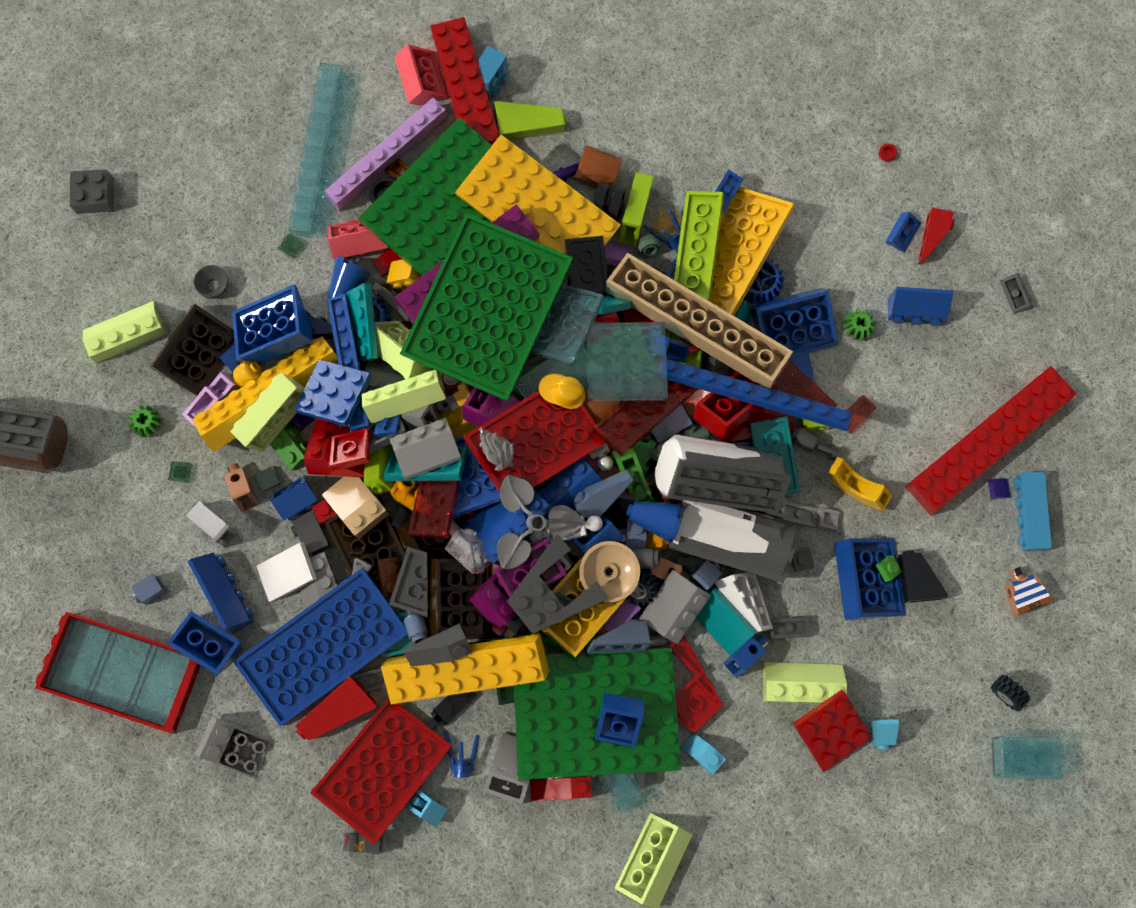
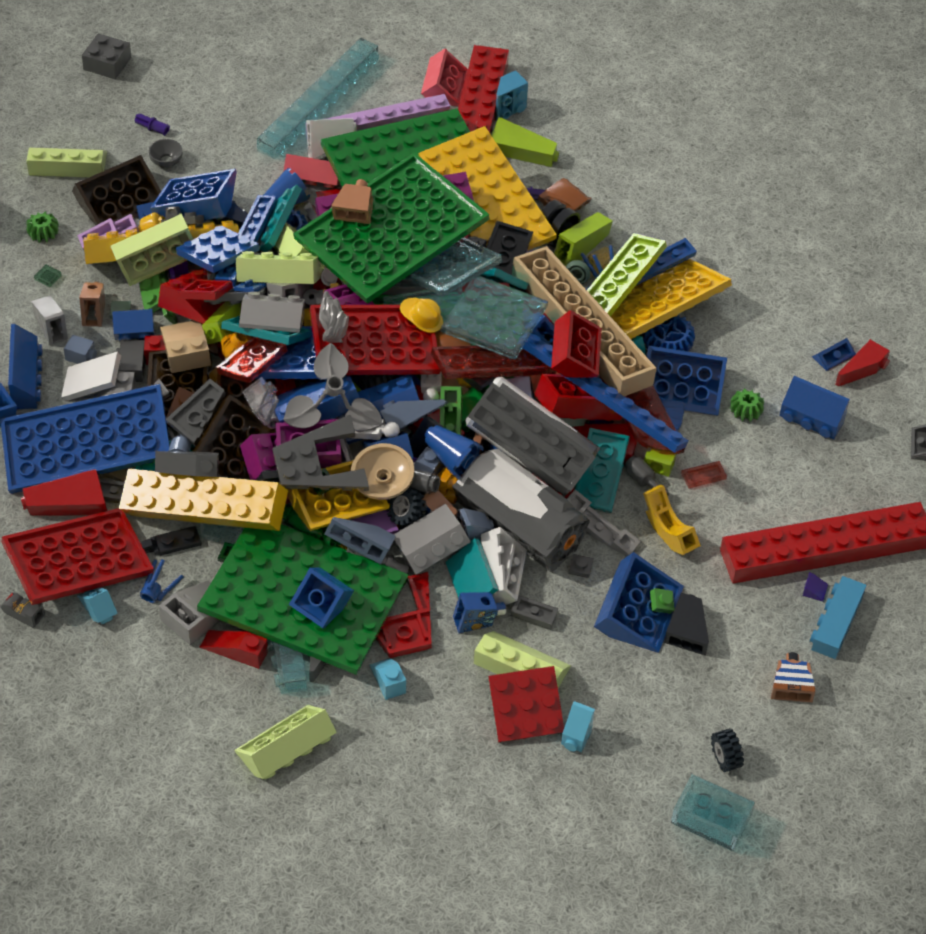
camera: 25 degrees right, 25 degrees down
(178, 251) = (152, 124): none -> dark purple axle
(258, 545) = (79, 350): none -> sand blue brick
(268, 363) = (190, 217): none -> dark grey hinge
(290, 246) = (252, 156): clear green tile -> none
(354, 196) = (326, 128): none -> white slope
(443, 299) = (354, 203): none -> nougat torso
(717, 365) = (576, 346): none -> red slope
(887, 152) = (853, 290): red tile -> none

